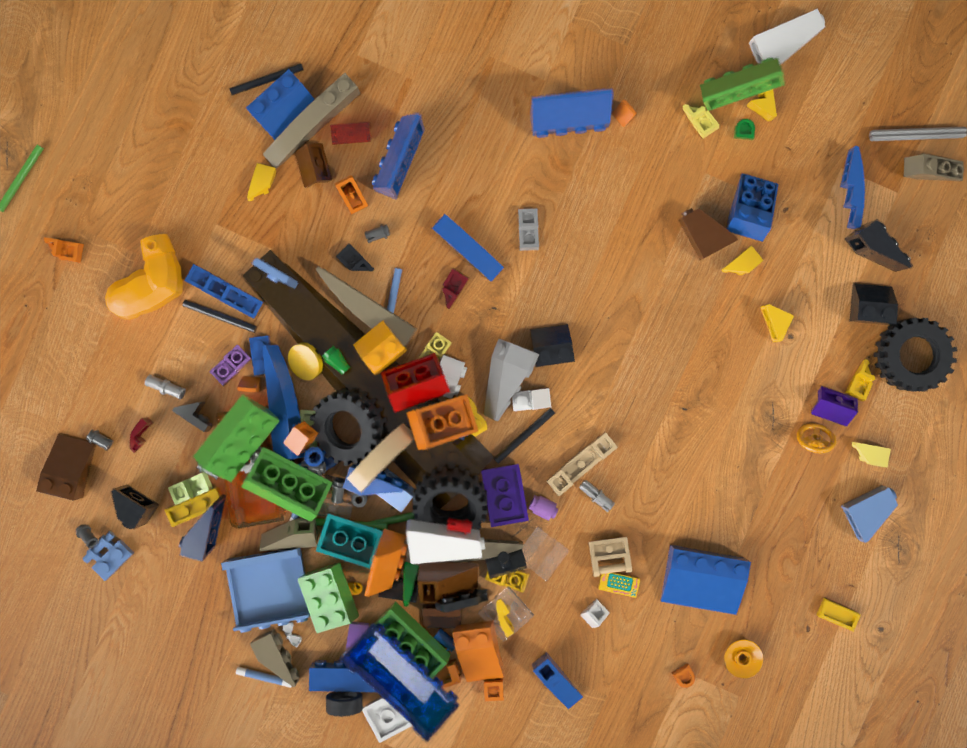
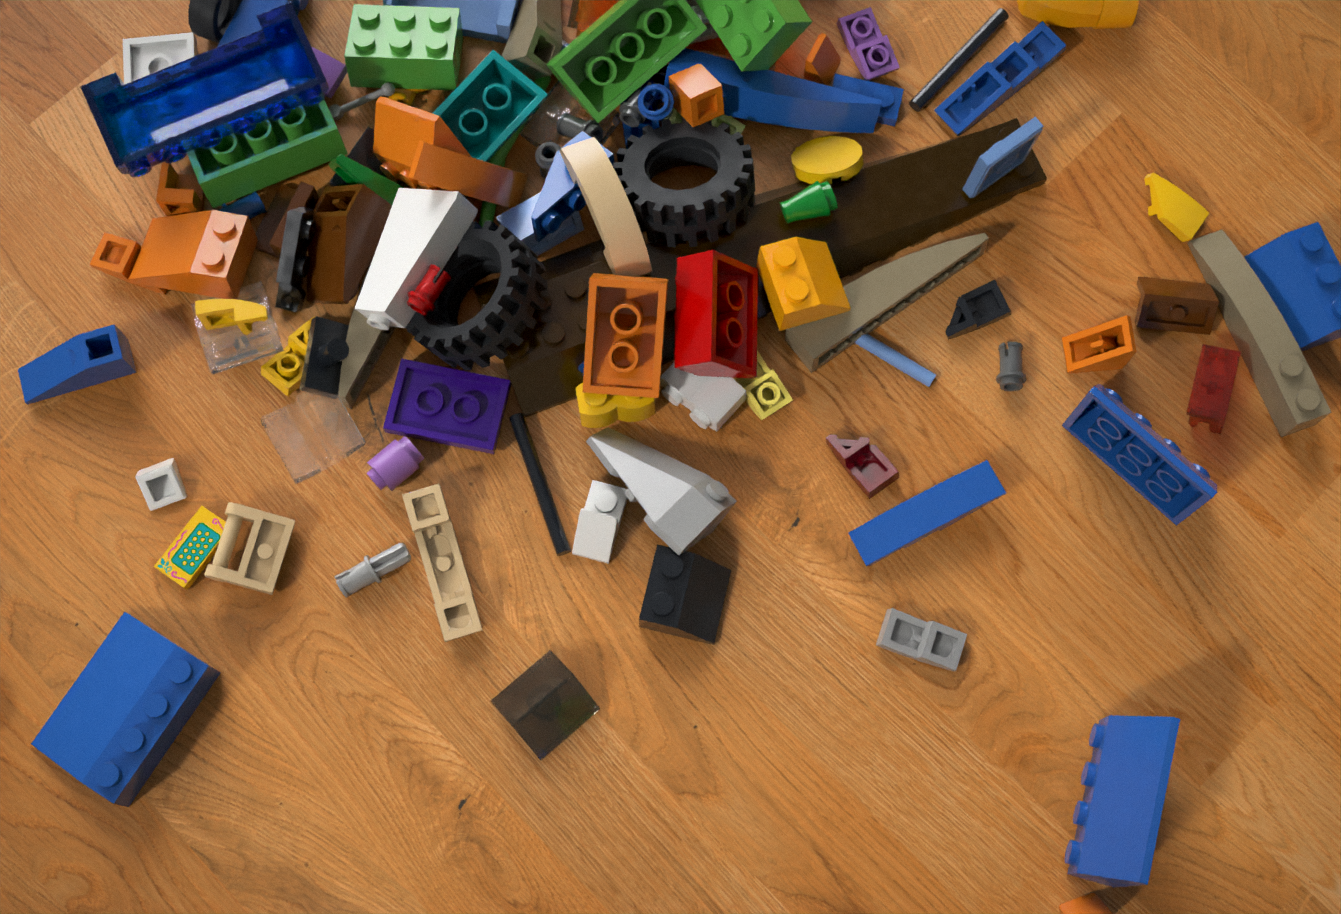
camera: 110 degrees right, 15 degrees down
(373, 617) = (338, 111): none -> light grey hinge
(394, 531) = (467, 175): none -> orange slope
(626, 390) = (545, 704): none -> clear smoke slope

